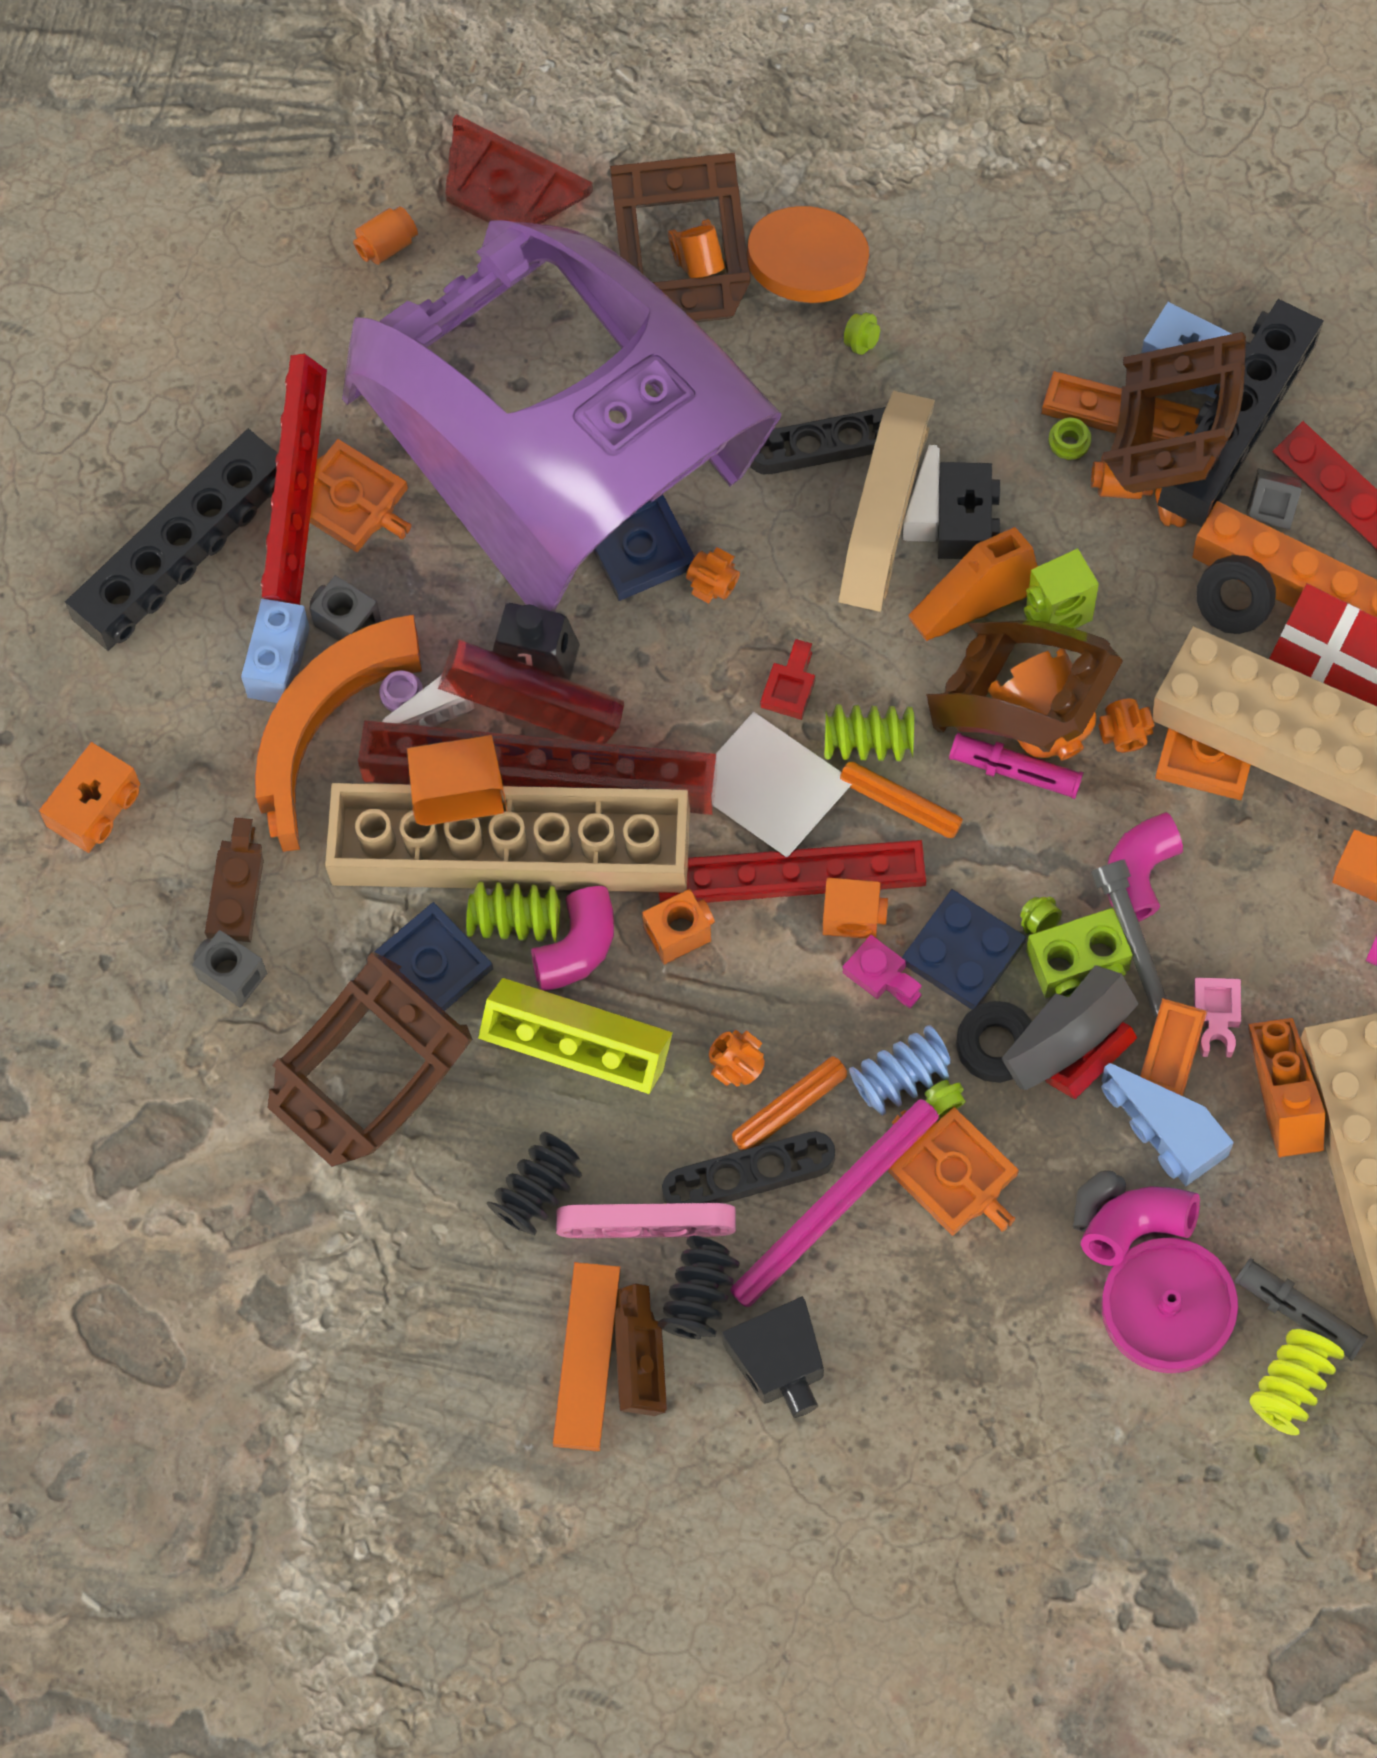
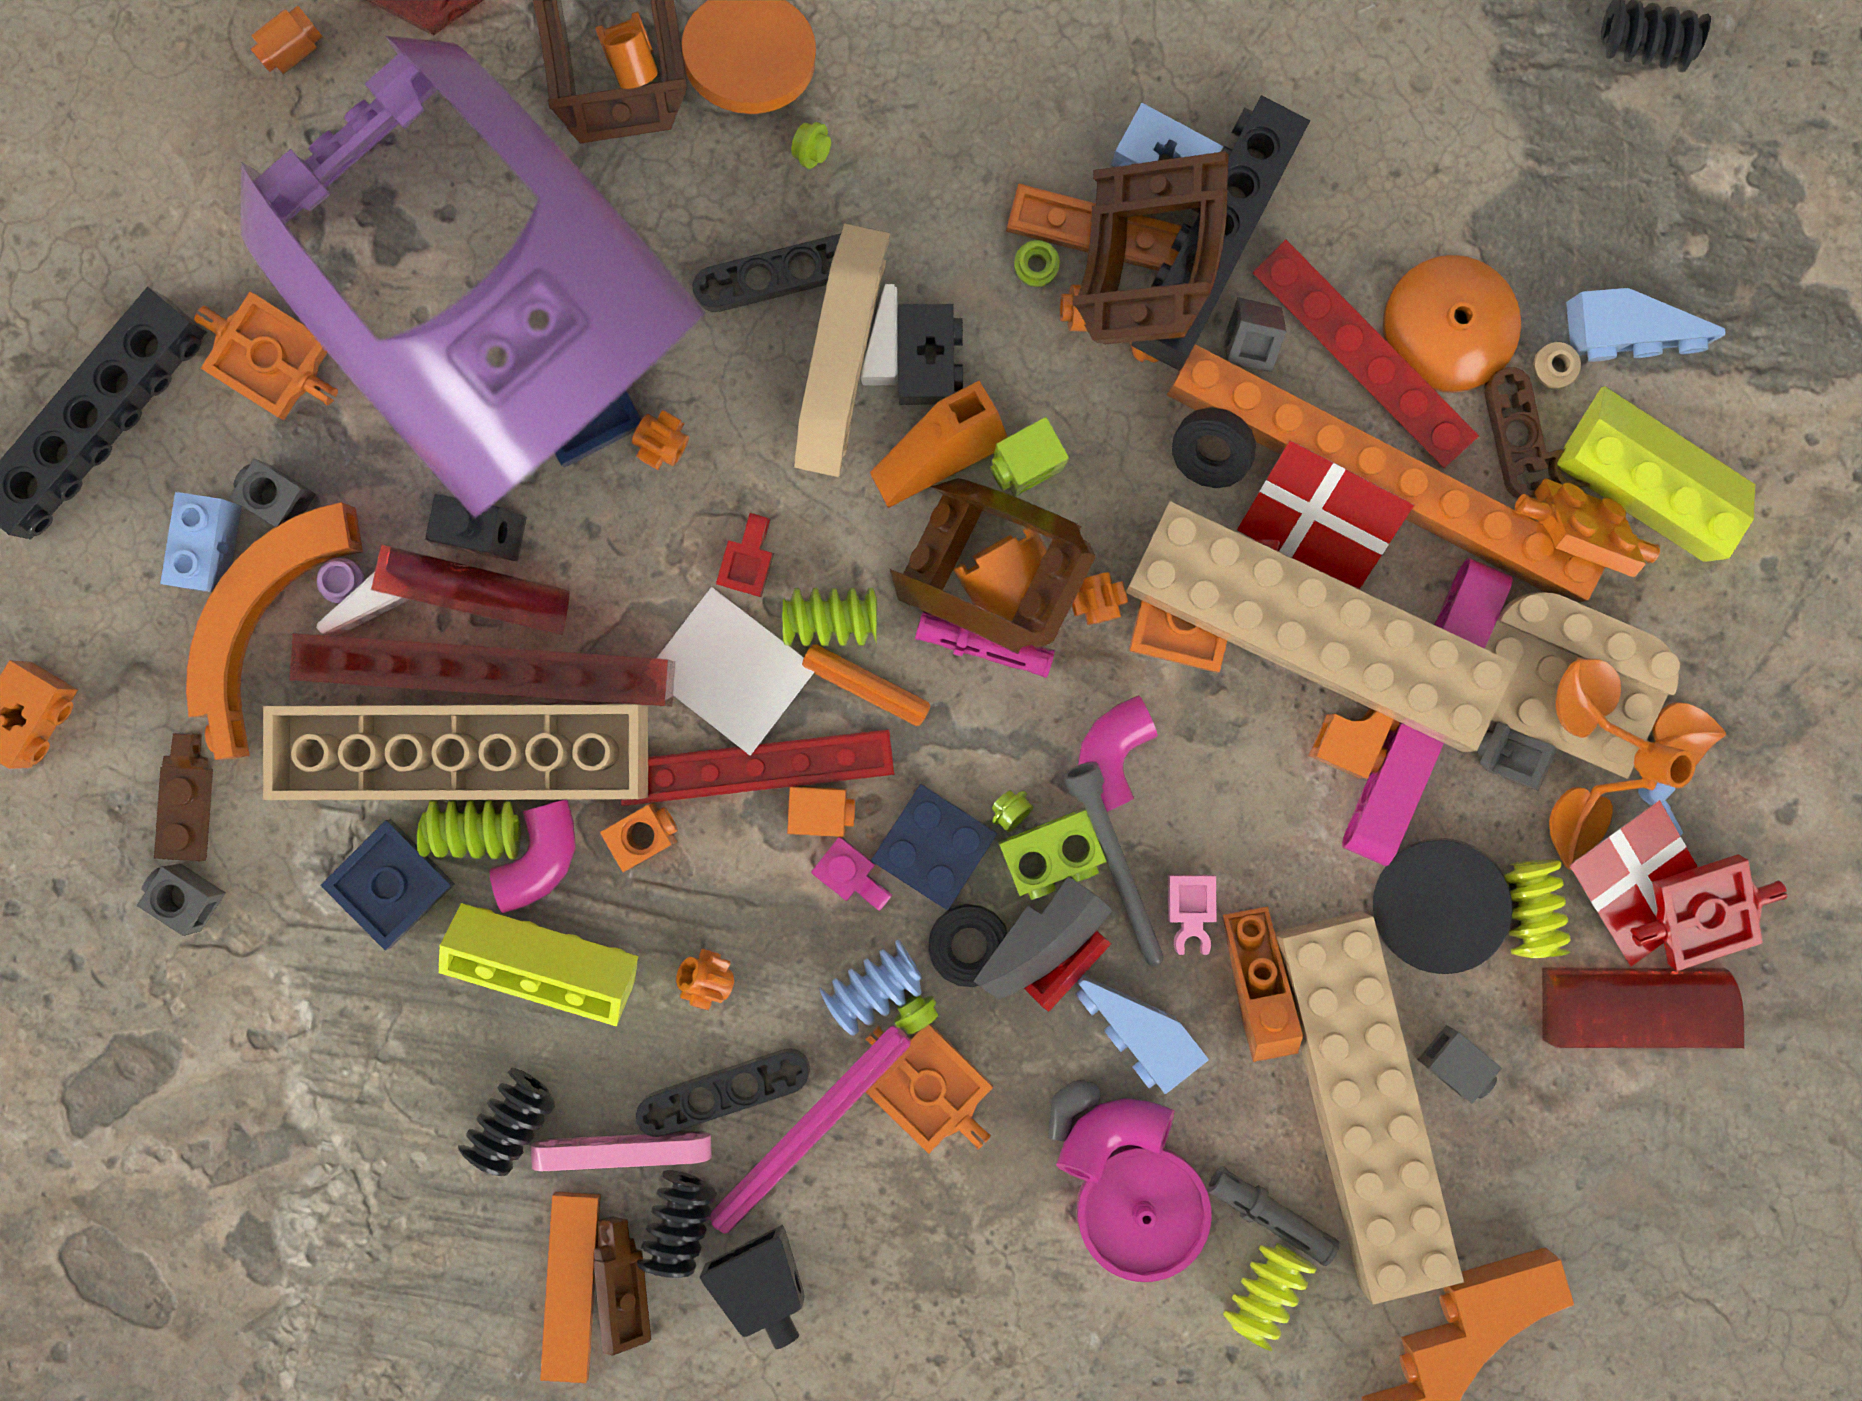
camera: 10 degrees left, 20 degrees up
(294, 480) = (200, 350): red plate -> none
(410, 1016) = (367, 959): reddish brown wedge -> none
(455, 781) = (388, 710): orange piece -> none
(790, 1104) = (761, 1020): orange axle -> none
(1173, 1045) = (1147, 952): orange tile -> none

